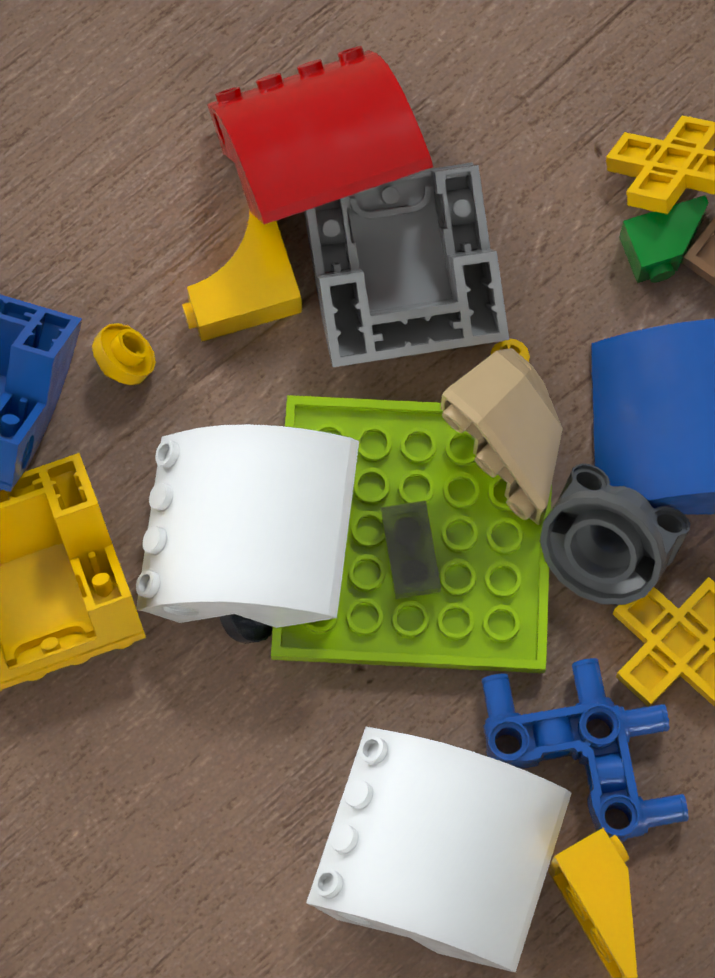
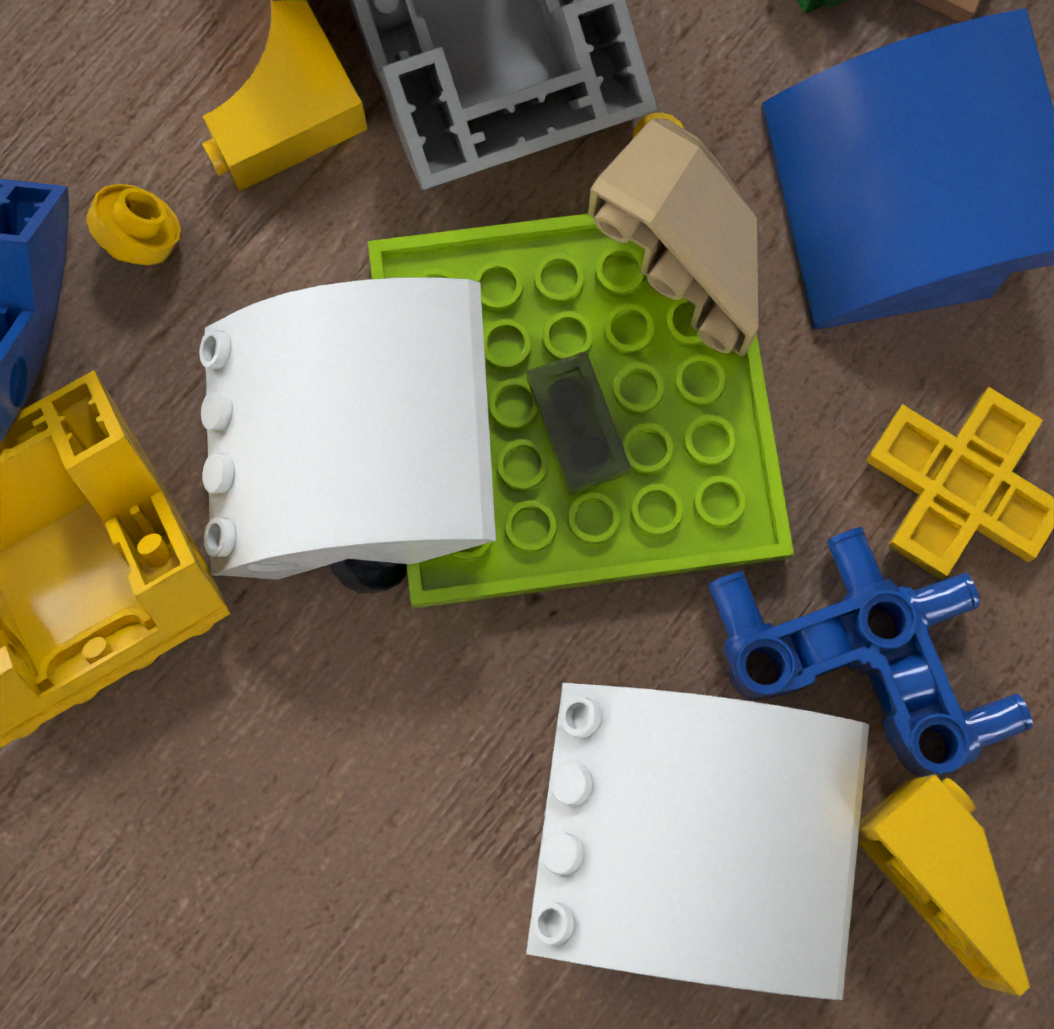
camera: 10 degrees left, 5 degrees up
(609, 538) = (847, 359): dark grey piece -> none

